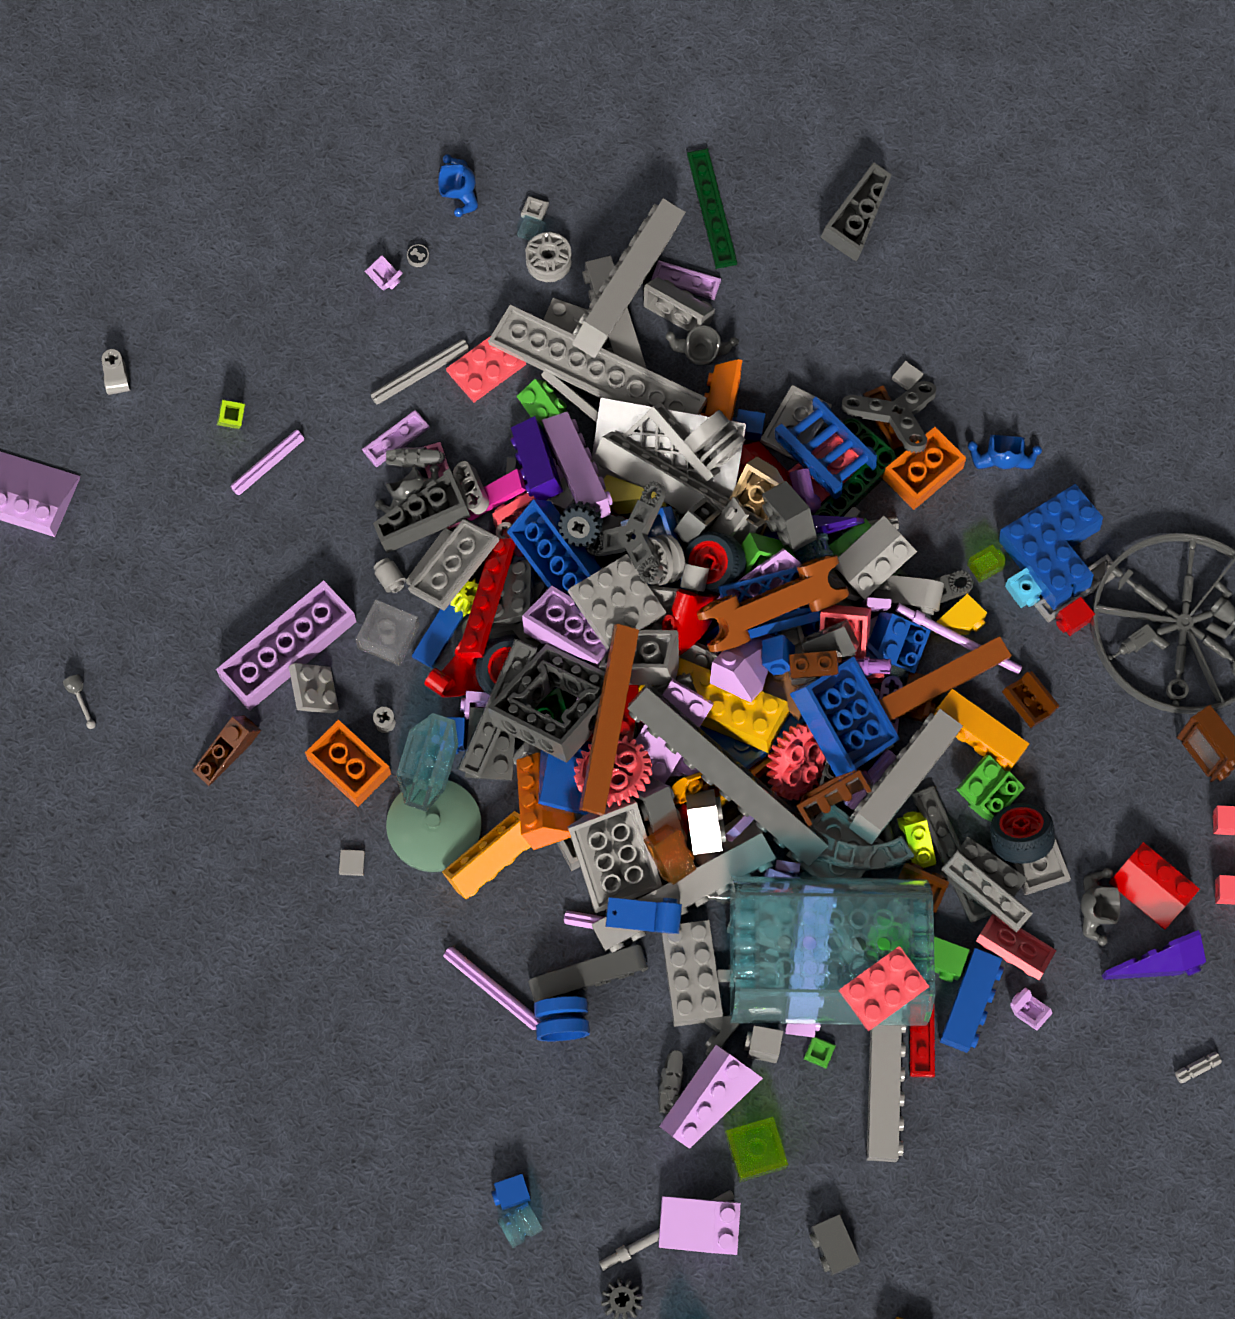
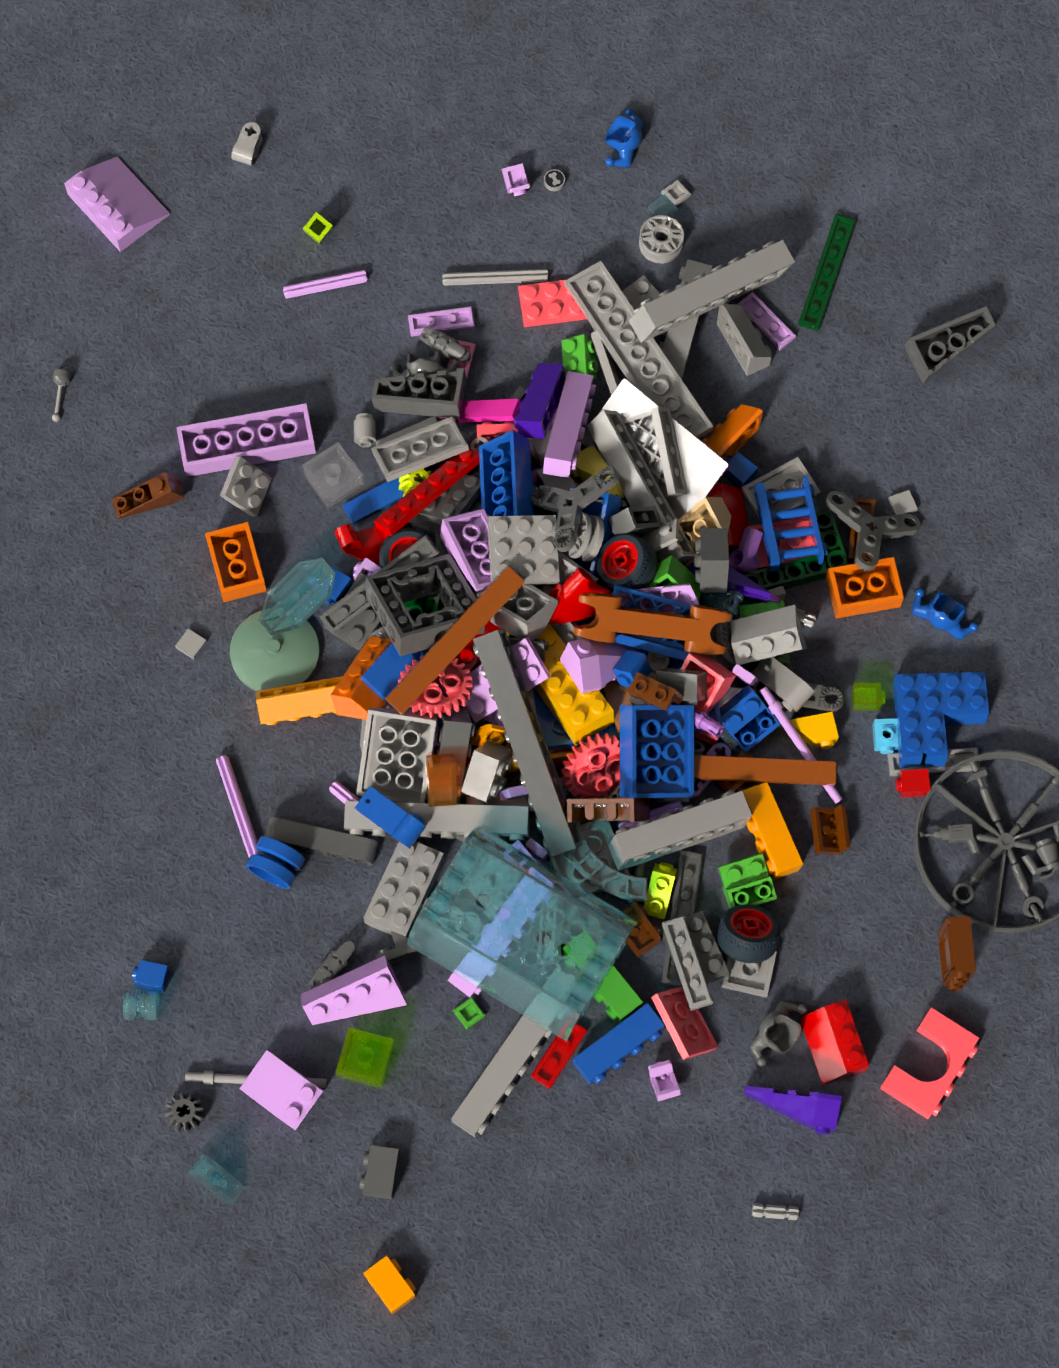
camera: 30 degrees right, 0 degrees up
(380, 713) = (286, 550): light grey bush -> none
(462, 469) = (468, 411): light grey beam -> none
(584, 516) = (541, 463): black wheel -> none
(694, 577) = (601, 566): light grey brick -> none
(701, 345) = (741, 381): dark grey piece -> none
(714, 440) = (692, 468): light grey wheel -> none
(763, 1044) = (424, 978): light grey brick -> none
(883, 988) = (539, 984): coral plate -> none

